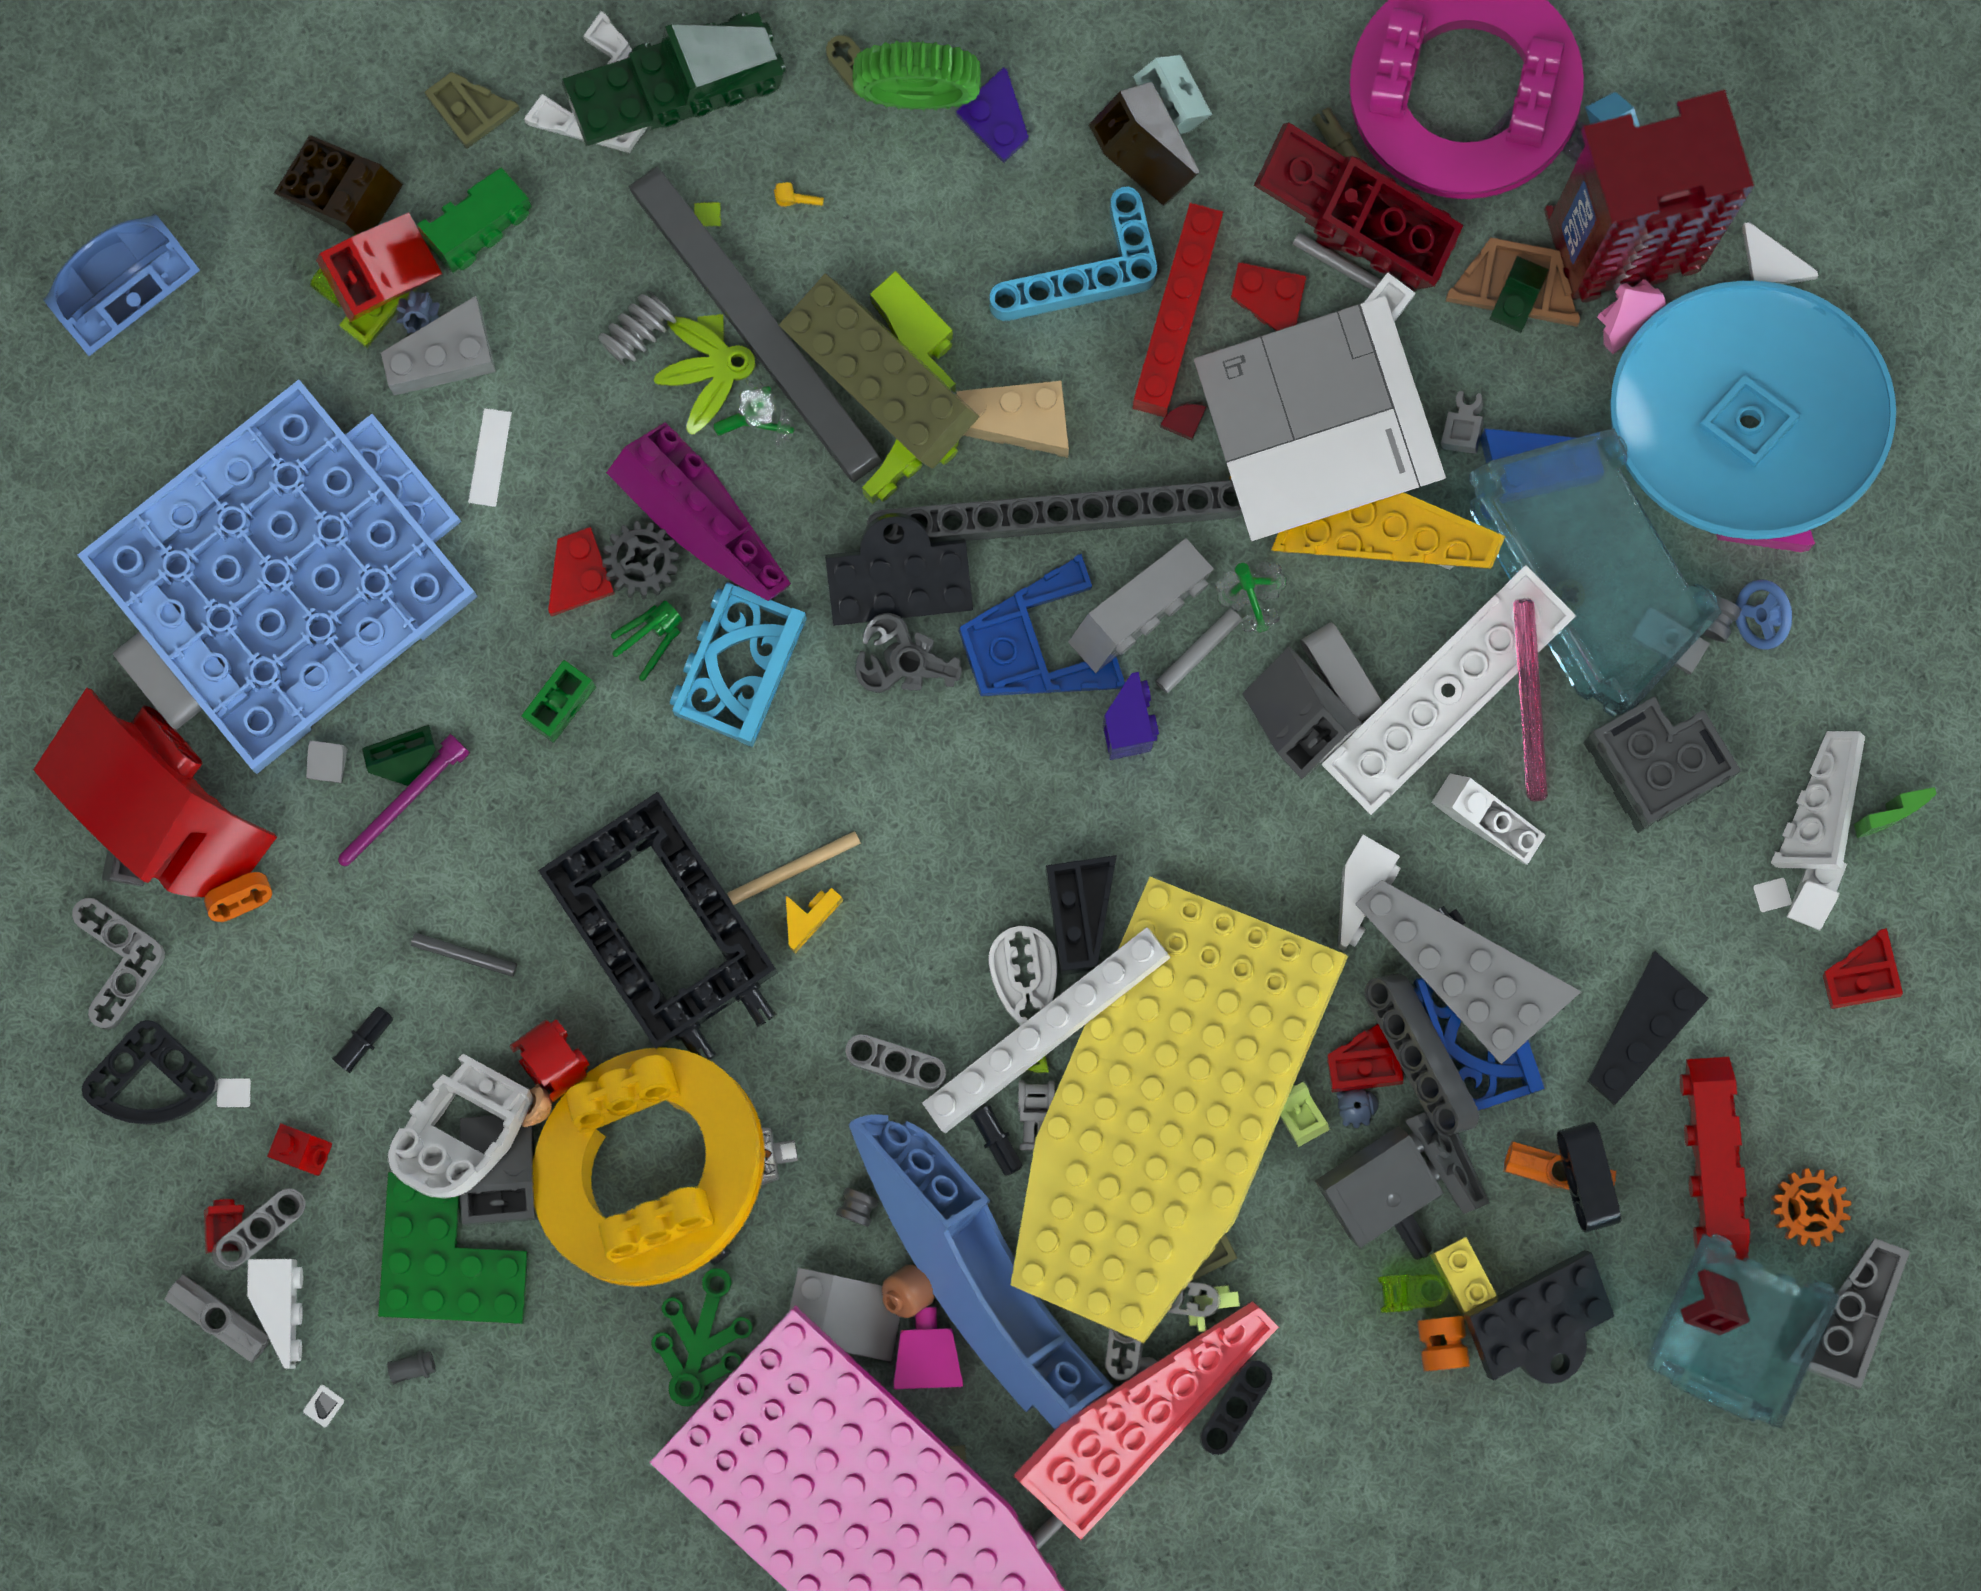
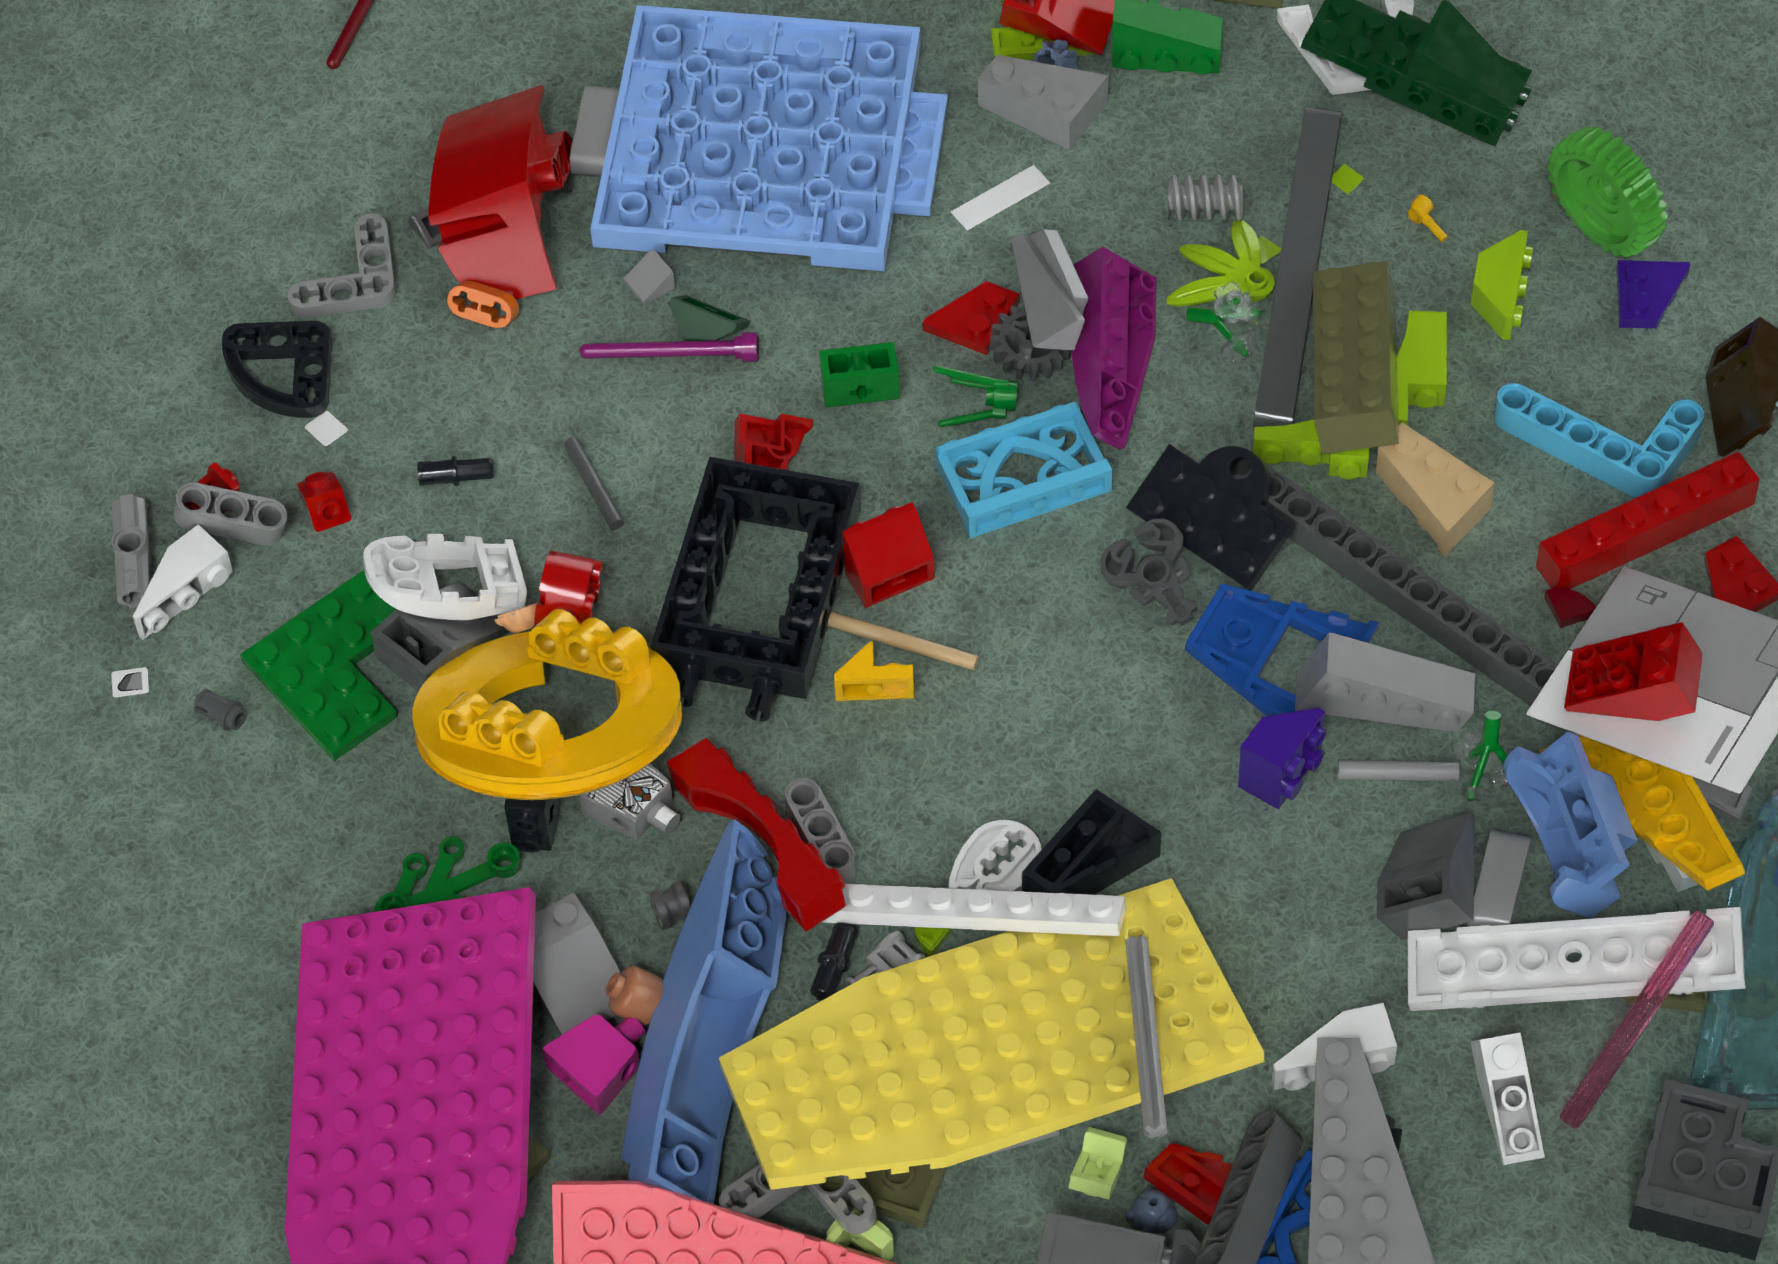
camera: 50 degrees right, 25 degrees down
(549, 814) = (768, 440): none -> red slope
(617, 511) = (1050, 290): none -> light grey wedge
(728, 822) = (887, 555): none -> red slope
(790, 1099) = (713, 785): none -> red arch
(901, 207) = (1500, 283): none -> lime slope
(1270, 1018) = (1146, 1037): none -> light grey axle
(1297, 450) = (1637, 675): none -> red slope
(1363, 591) = (1576, 820): none -> medium blue piece

